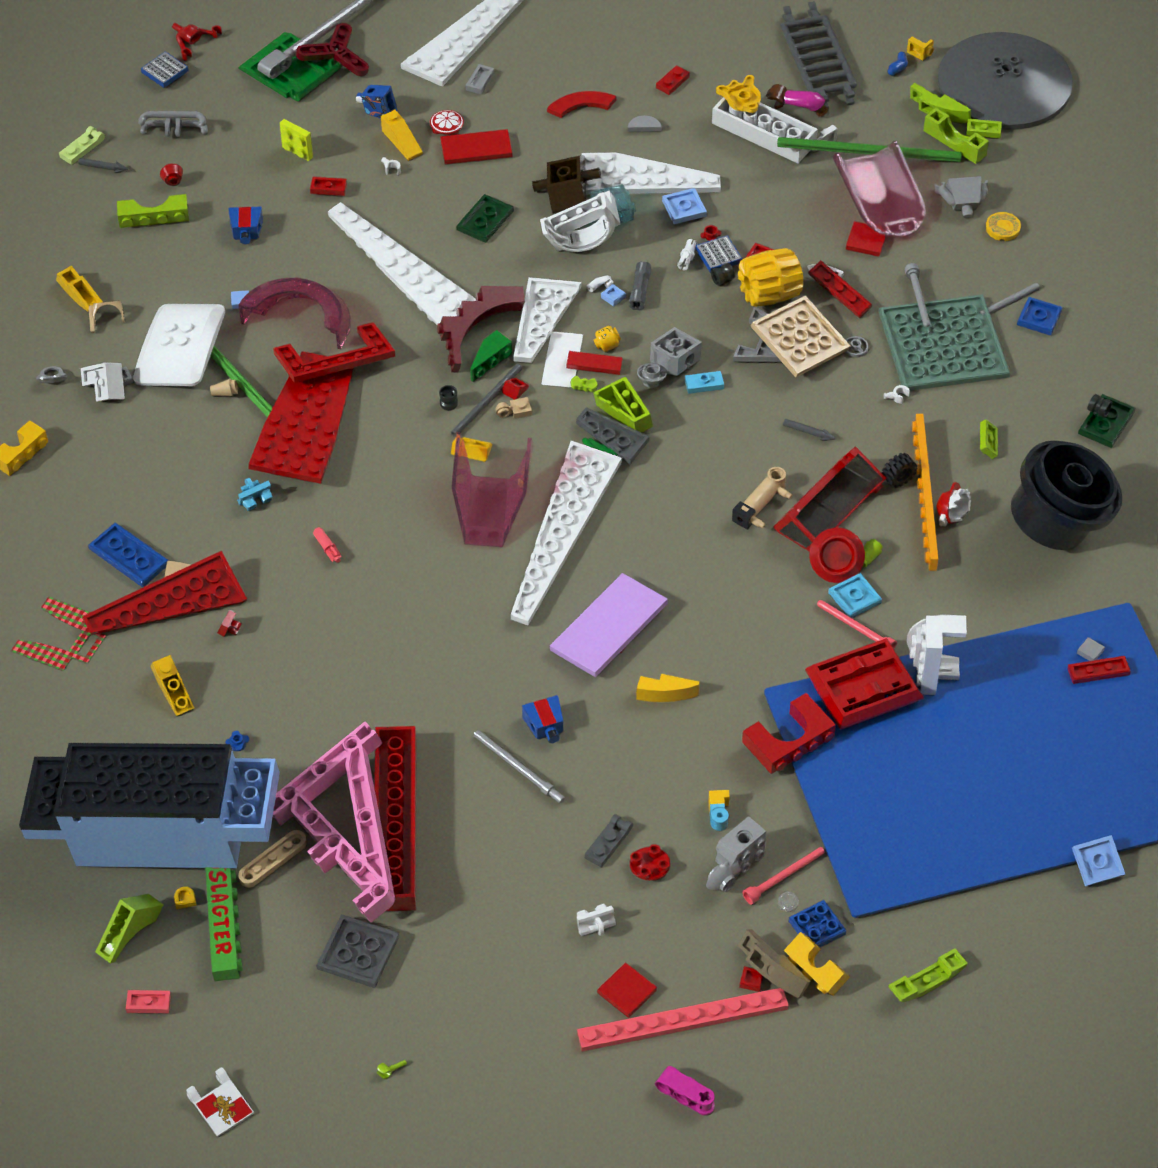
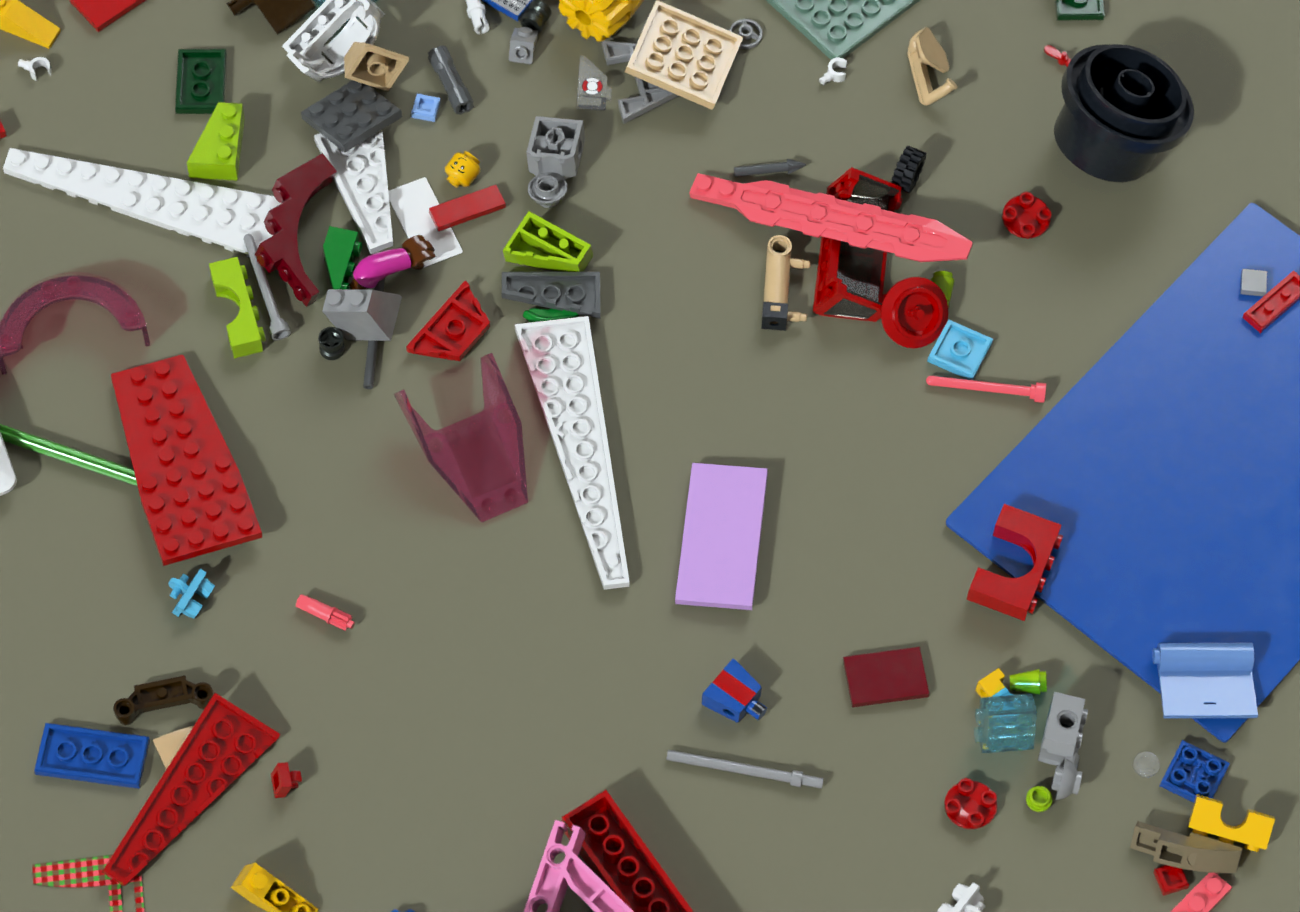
camera: 35 degrees left, 10 degrees up
(189, 540) = (161, 695): none -> dark brown plate
(225, 388) = (50, 473): tan cone -> none
(377, 349) = (137, 405): red plate -> none
(400, 366) = (243, 331): none -> lime arch
(423, 374) = (278, 327): none -> light grey piece
(466, 256) = (219, 145): none -> lime wedge
(474, 448) = (415, 390): yellow slope -> none
(477, 385) = (363, 313): none -> light grey slope
(507, 365) = (384, 263): none -> dark pink piece
(514, 388) = (398, 285): red slope -> none
(519, 408) = (417, 312): tan plate -> none
(536, 423) = (452, 328): none -> red wing
(560, 275) = (351, 115): none -> dark grey plate
(583, 384) = (474, 242): lime piece -> none
(593, 252) = (373, 65): none -> tan slope
(597, 282) = (402, 94): white arm -> none
(608, 841) = (906, 804): dark grey plate -> none
(653, 761) = (885, 677): none -> dark red tile
(666, 689) = (840, 581): yellow slope -> none
(698, 883) = (1039, 799): none -> lime plate
(701, 285) = (522, 45): none -> light grey bracket
(704, 382) = (609, 167): medium azure plate -> none
(705, 822) = (1006, 723): none -> clear light blue brick
(726, 330) = (592, 87): none -> clear slope
(744, 810) = (1030, 681): none -> lime cone
(753, 893) = (1104, 777): coral piece -> none
(823, 473) = (837, 219): none -> coral plate
(863, 679) = (1050, 455): red piece -> none
(867, 869) = (1206, 680): none -> door
(925, 496) = (953, 183): light orange plate -> none
(928, 654) = (1117, 392): white piece -> none
(953, 505) = (992, 183): white hair -> none
(962, 537) = (1026, 216): none -> red dish
(970, 410) = (925, 51): none -> tan piece
(988, 439) = (973, 78): lime plate -> none

